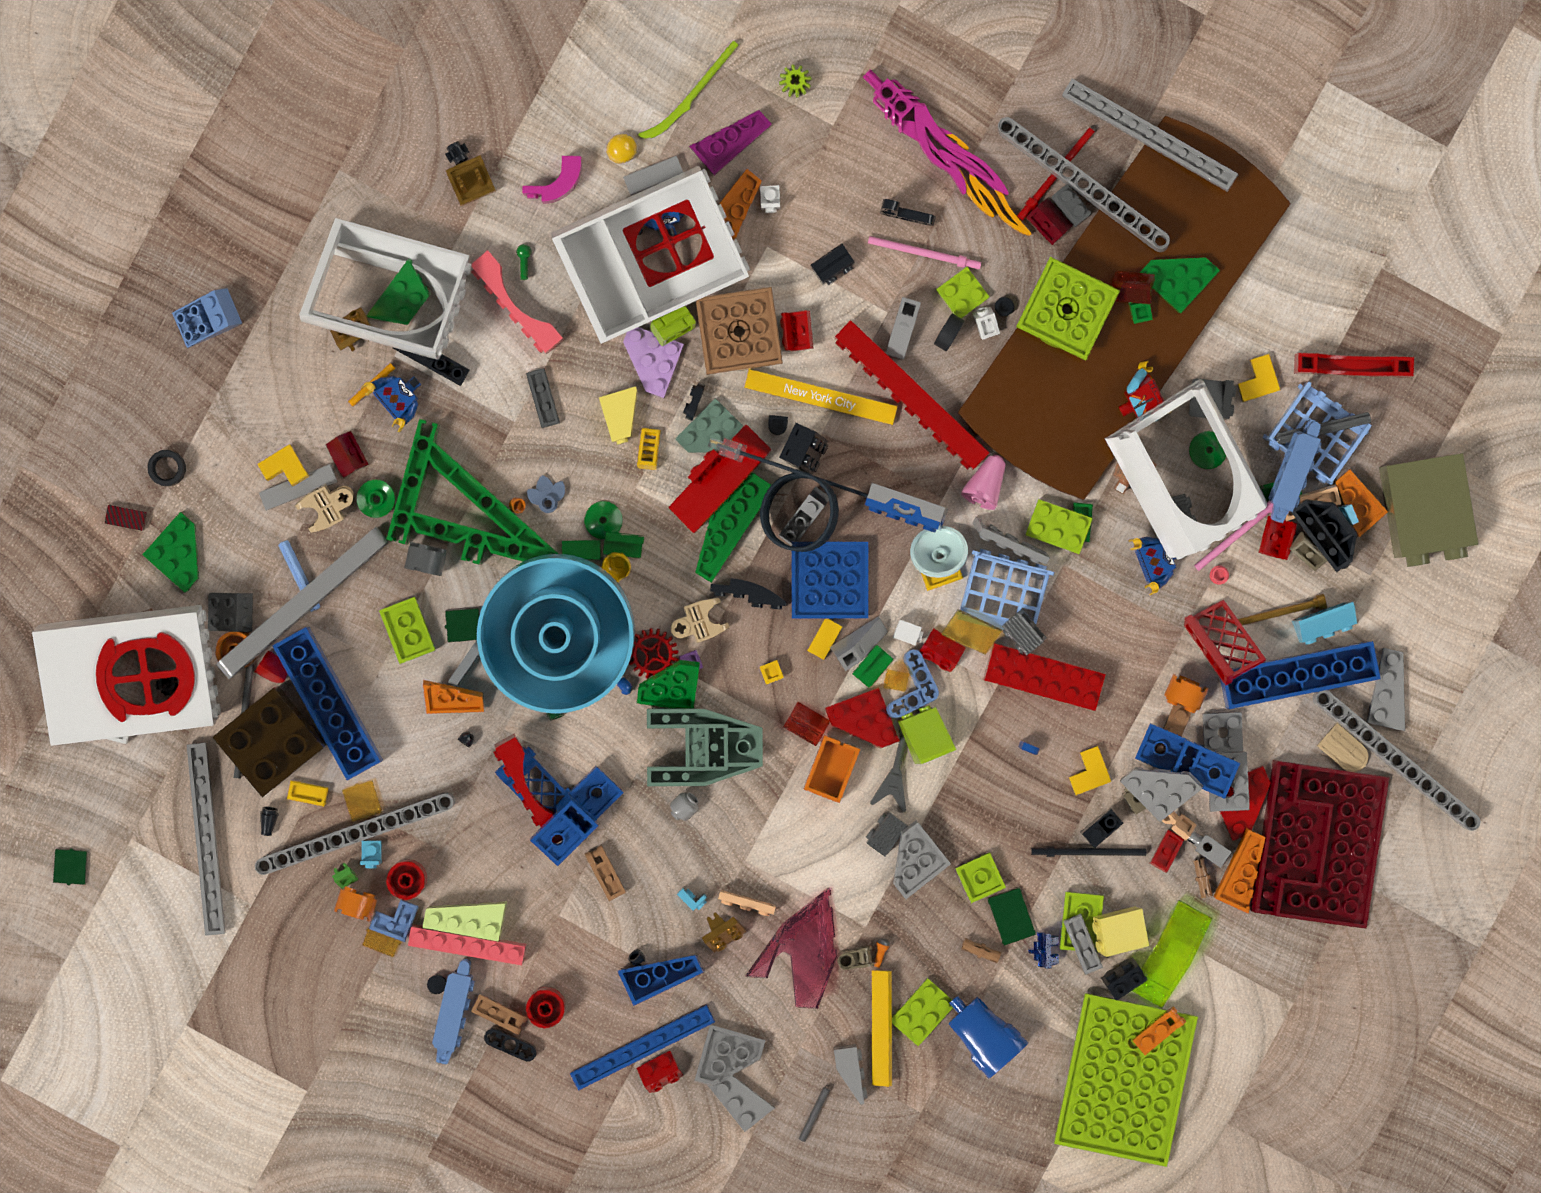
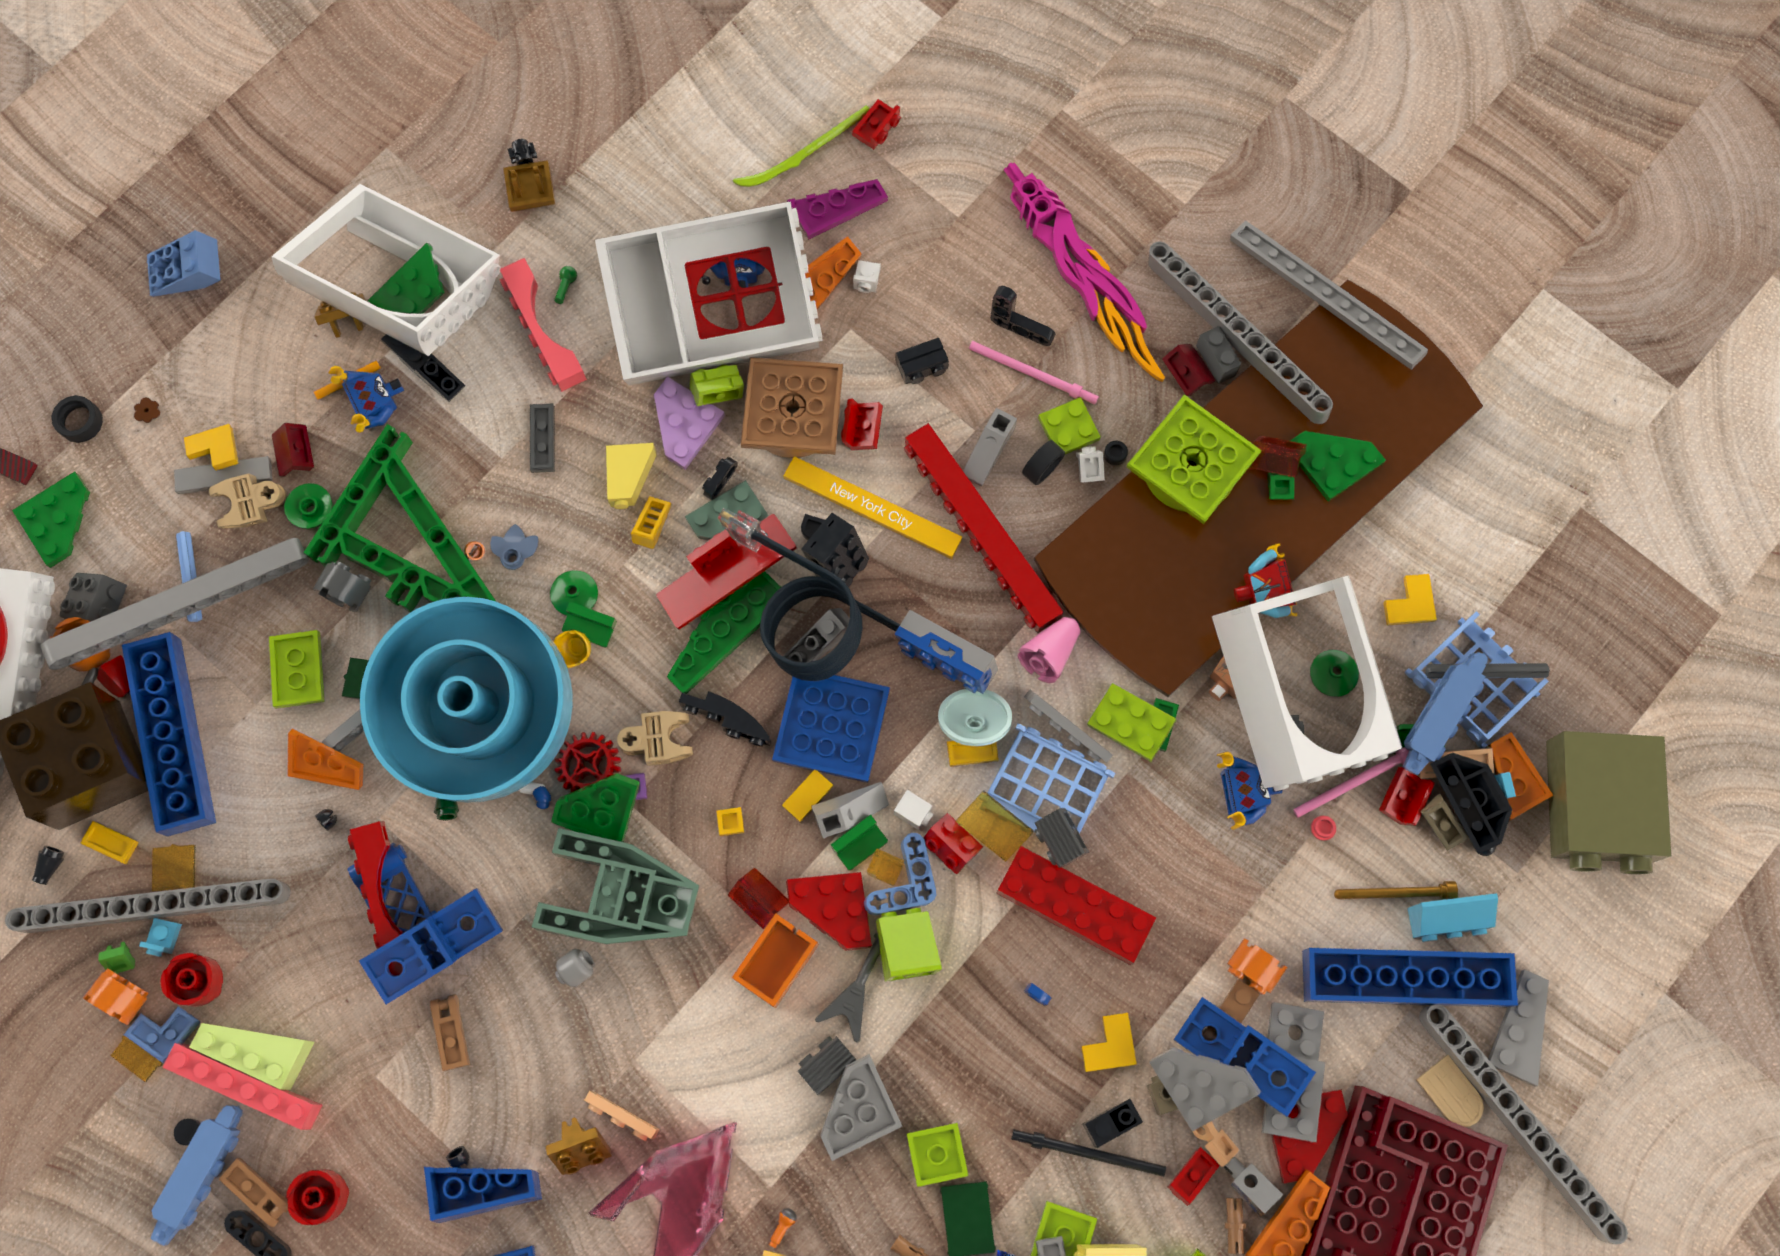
camera: 10 degrees right, 15 degrees down
(216, 442) = (145, 405): none -> reddish brown plant
(562, 187) = (629, 213): dark pink arch -> none
(582, 548) = (548, 621): green tile -> none
(621, 148) = (710, 188): yellow hair -> none
(688, 897) = (547, 1090): medium azure bracket -> none
(746, 57) = (876, 123): none -> red bracket
(788, 80) = (933, 161): lime gear -> none
(857, 958) = (748, 1227): dark tan piece -> none
(1032, 202) = (1172, 342): red bar -> none
(1209, 647) = (1301, 923): red fence -> none
(1222, 395) = (1369, 605): dark grey bracket -> none
(1353, 365) = (1496, 599): red arch -> none

